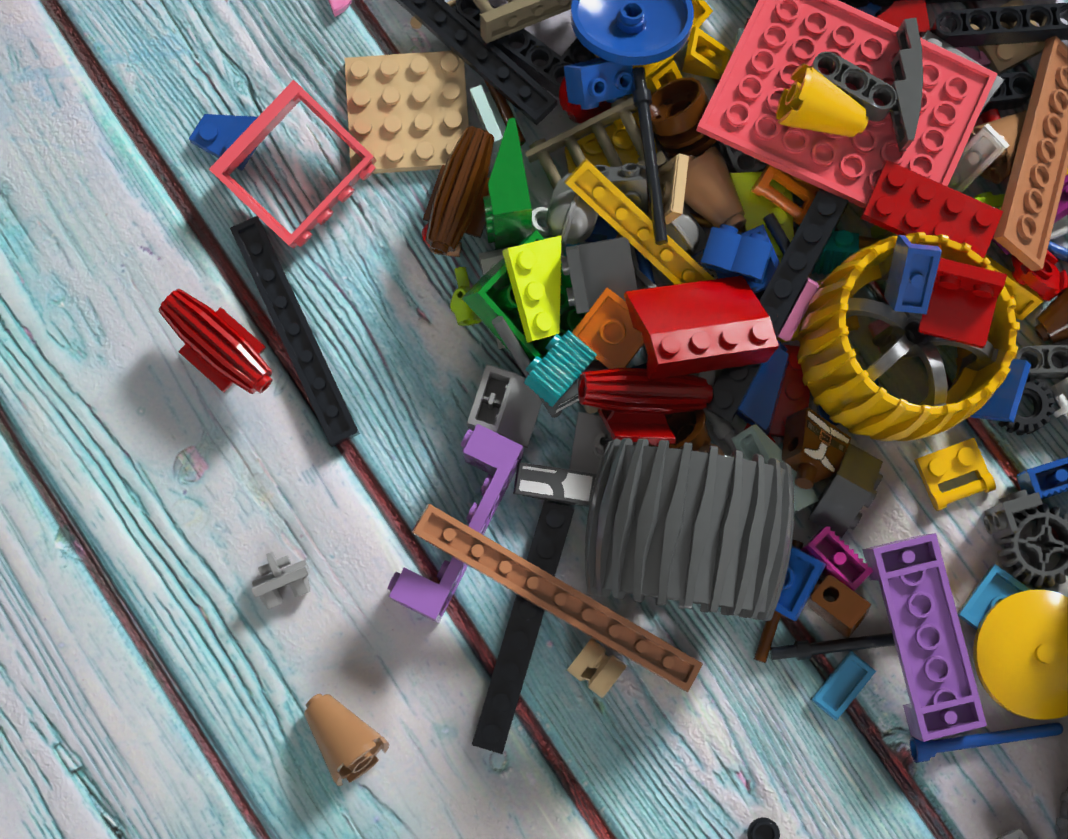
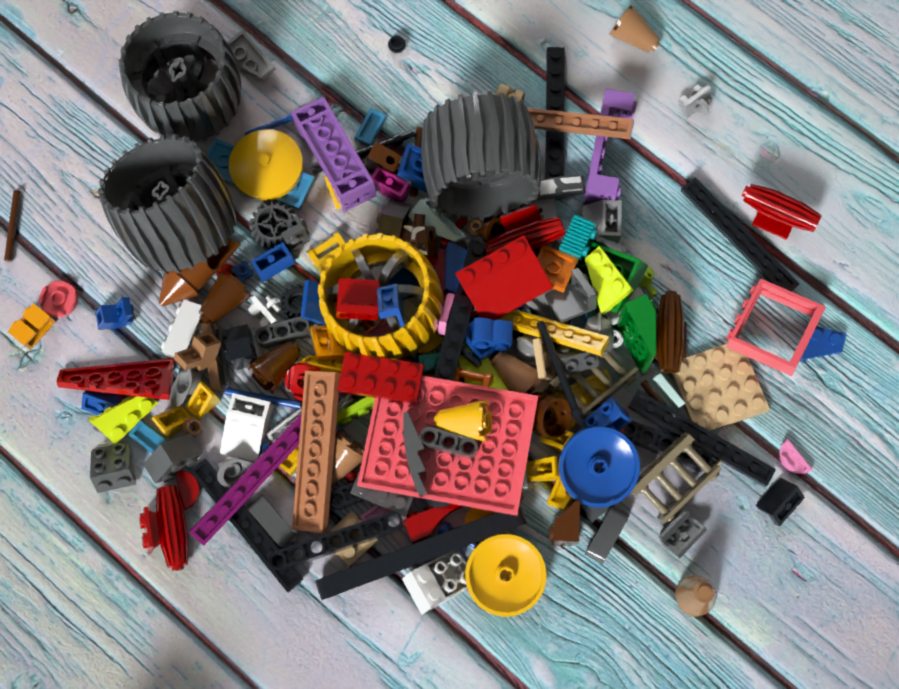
camera: 170 degrees right, 5 degrees down
(977, 157) = (357, 435): white tile -> none

